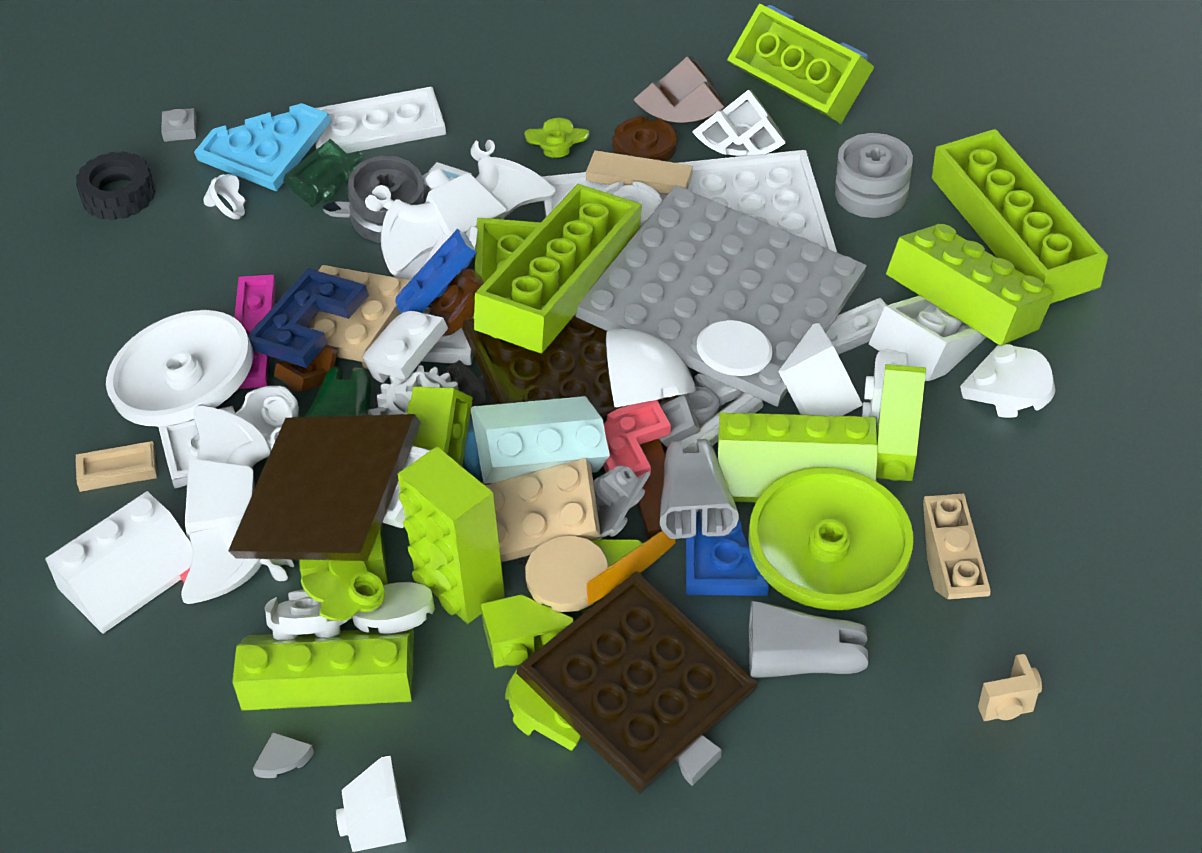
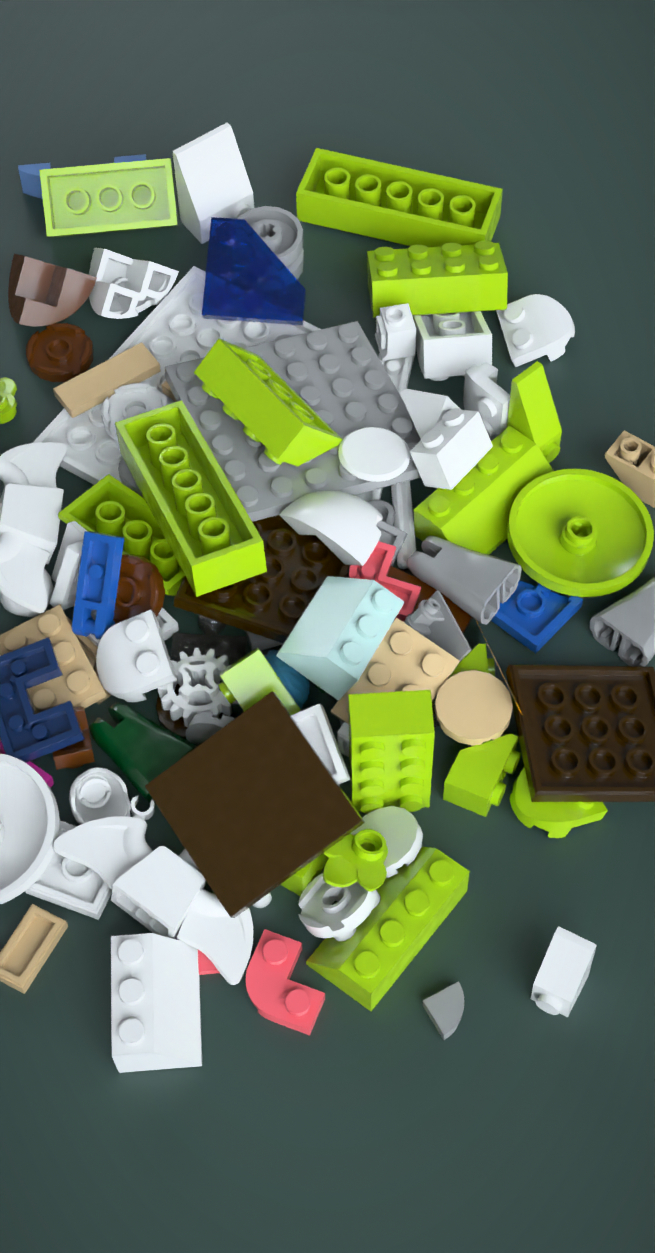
camera: 50 degrees left, 10 degrees up
(203, 628) = (271, 989): none -> coral plate
(696, 252) = (265, 405): none -> lime slope
(795, 387) = (451, 448): none -> white brick
(820, 176) = (248, 279): none -> clear blue plate
(882, 92) = (211, 181): none -> white slope
(883, 287) = (395, 332): none -> white window

